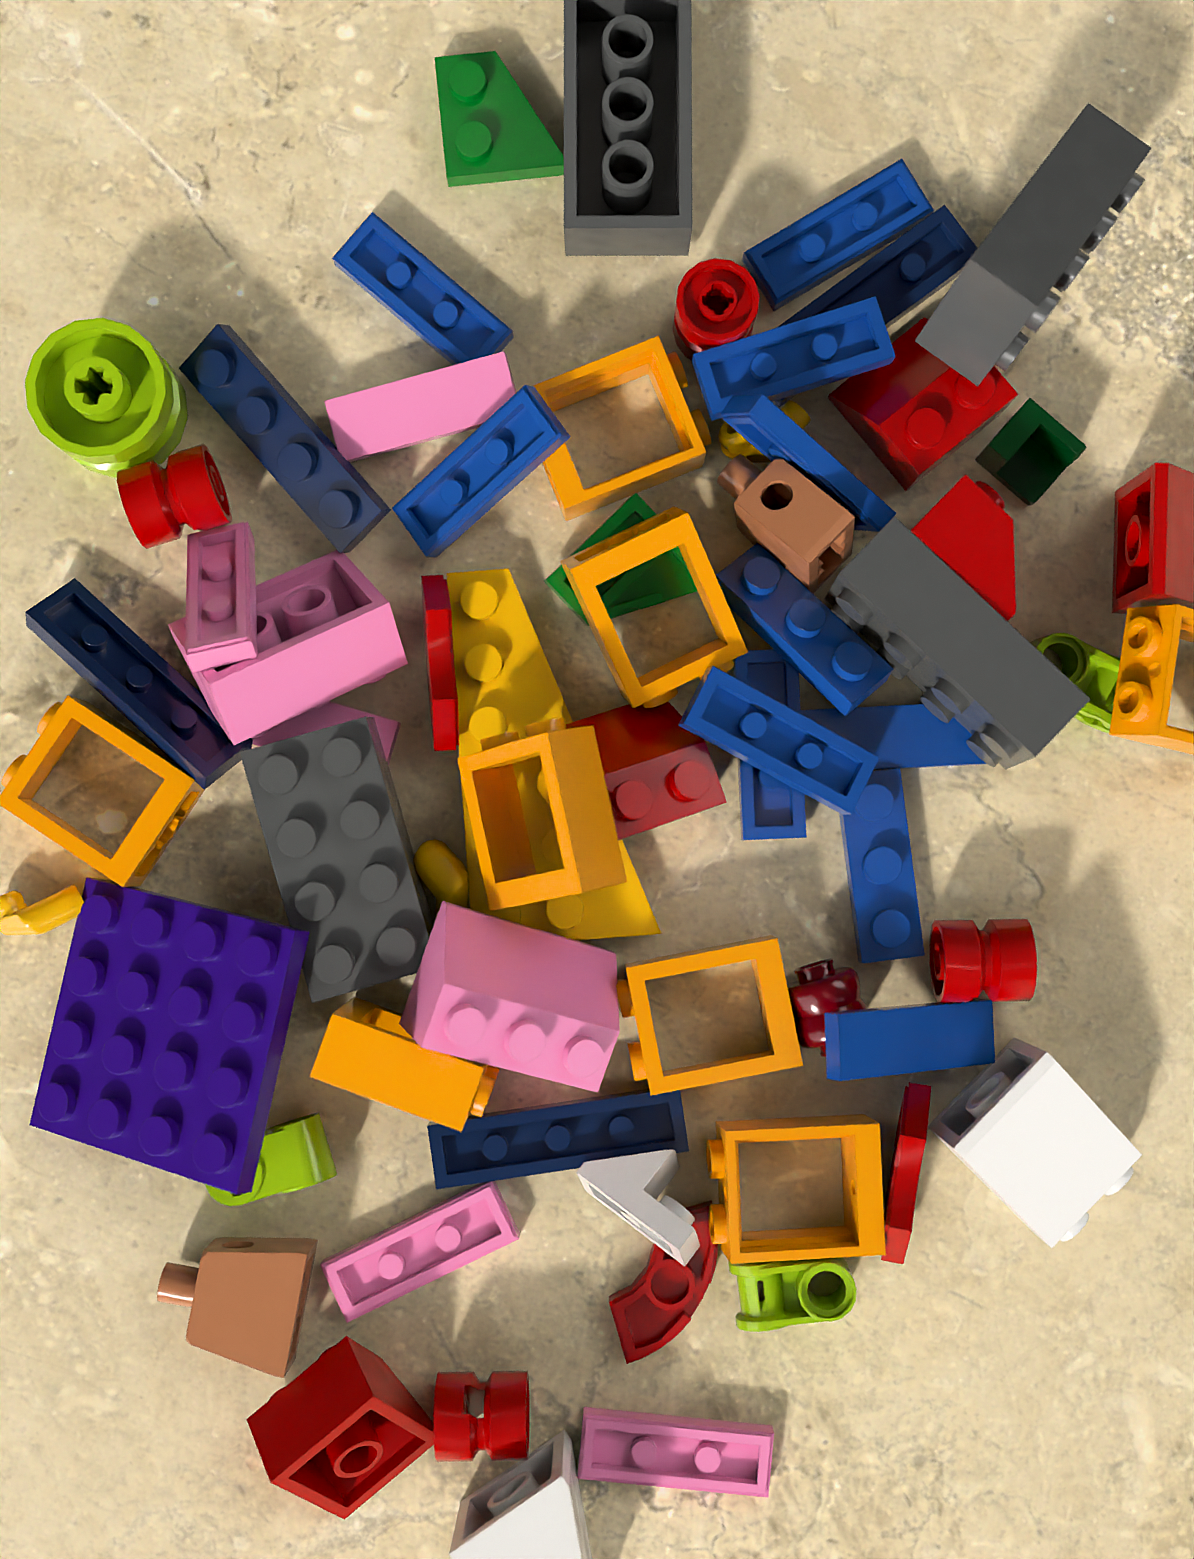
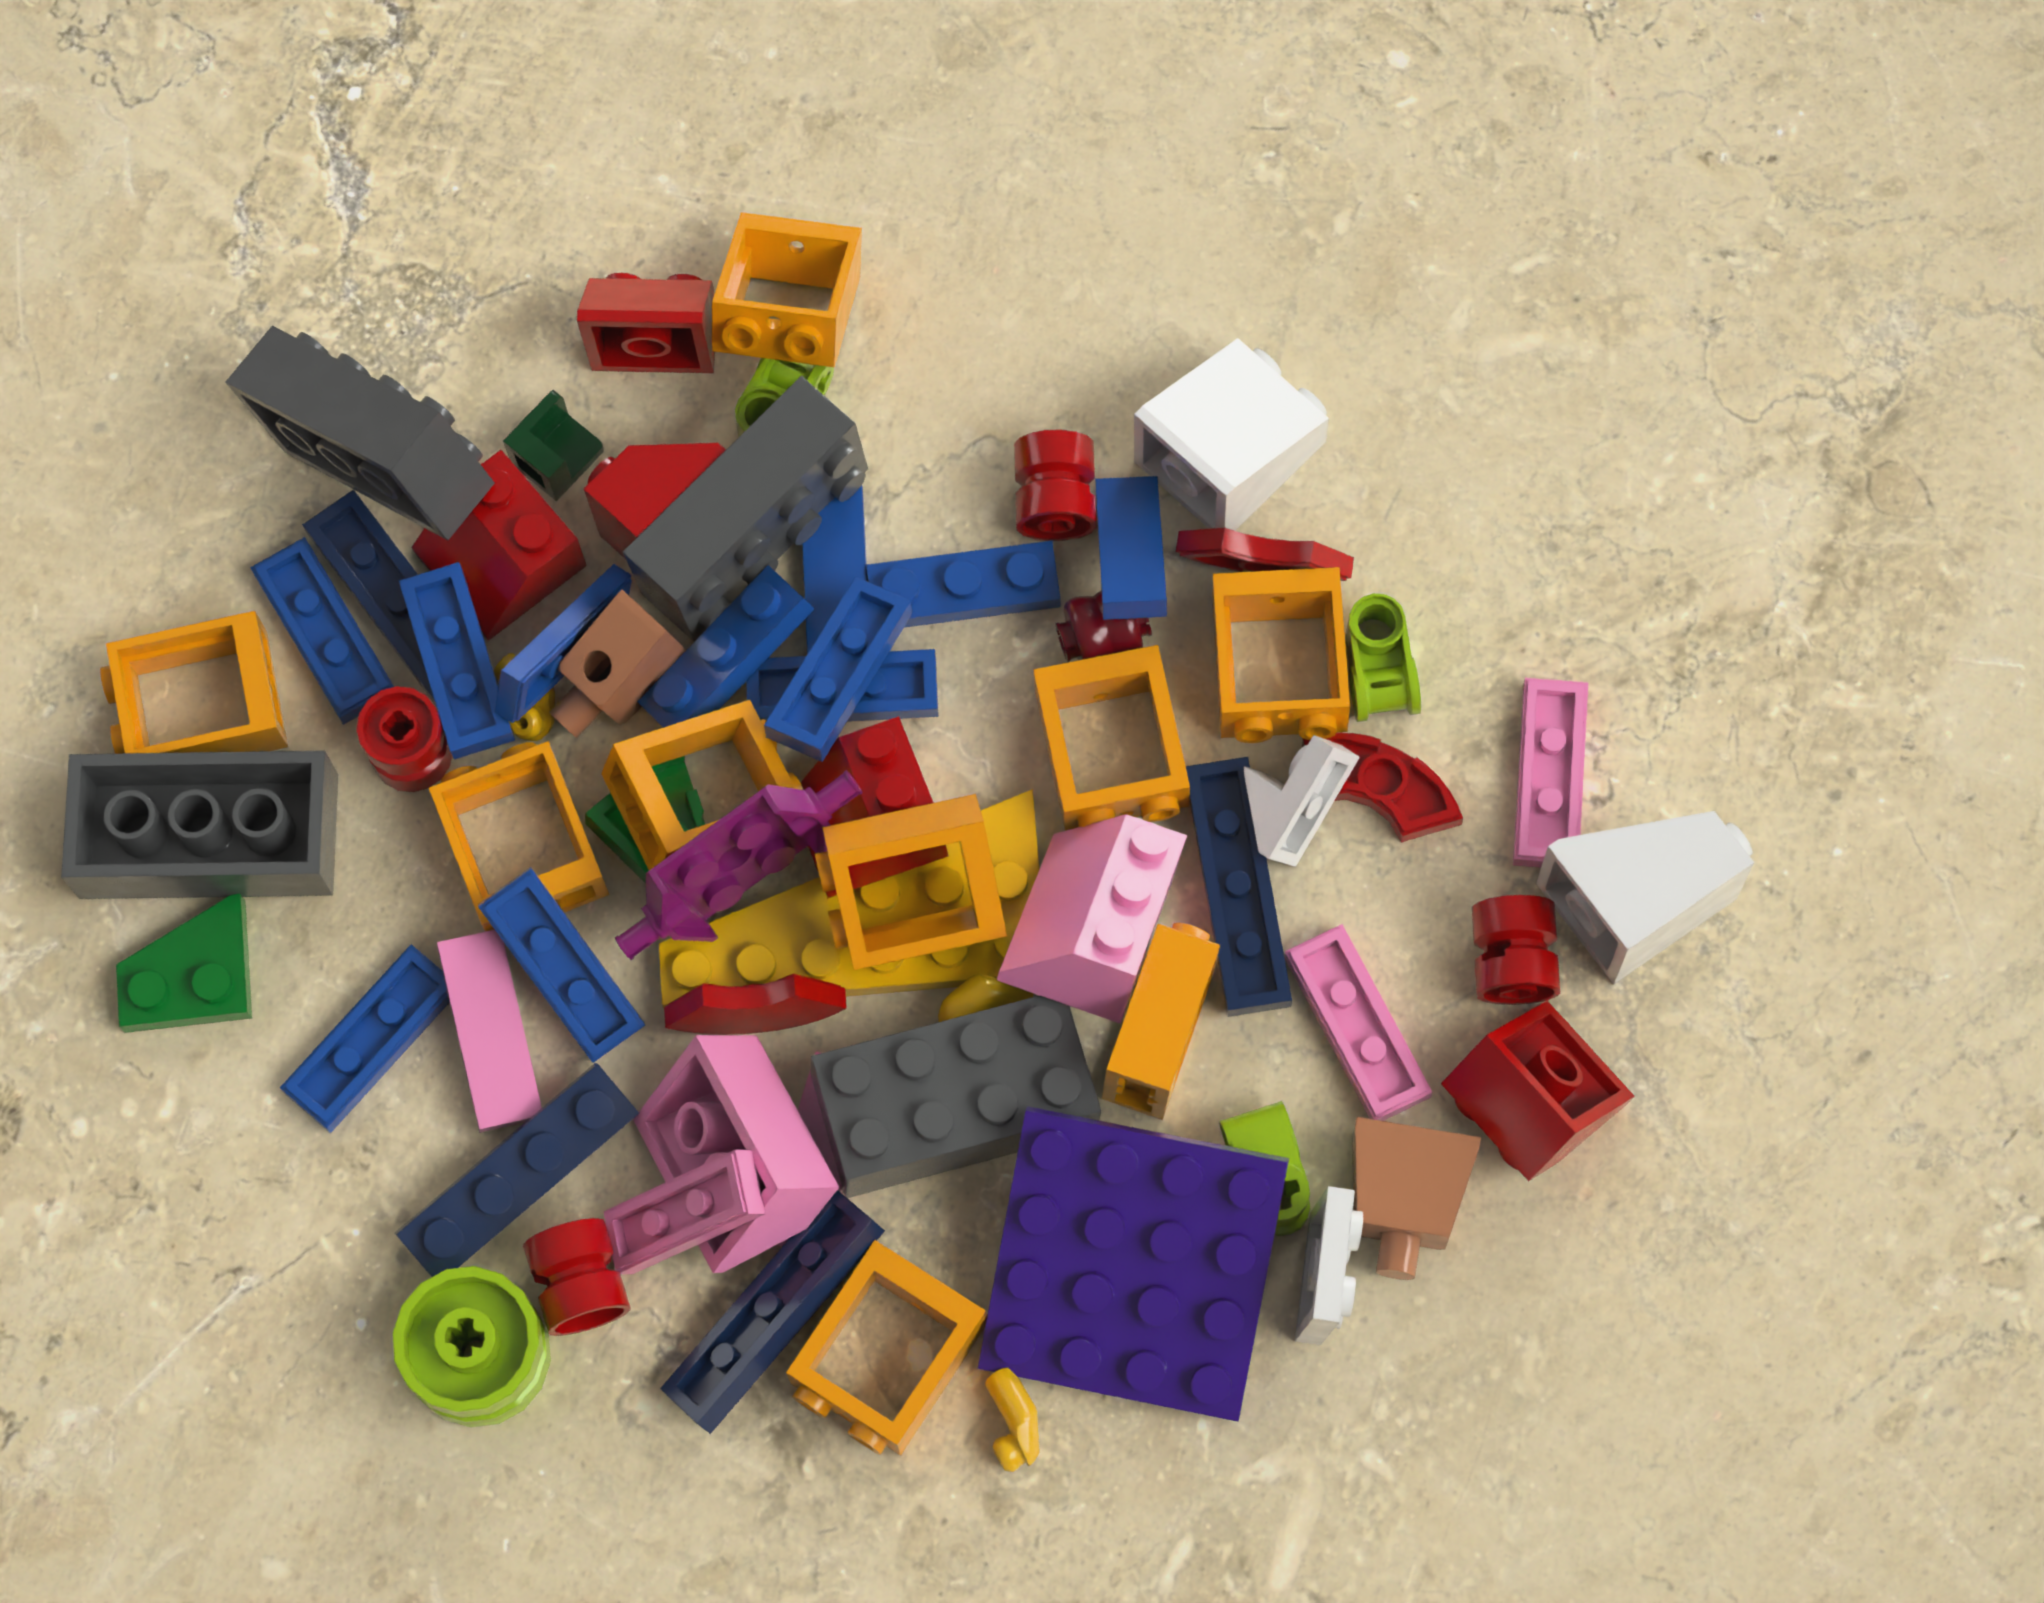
camera: 90 degrees left, 15 degrees down
(152, 1220) = (1325, 1289): none -> white plate
(536, 587) = (731, 858): none -> magenta plate
(779, 168) = (185, 645): none -> light orange window

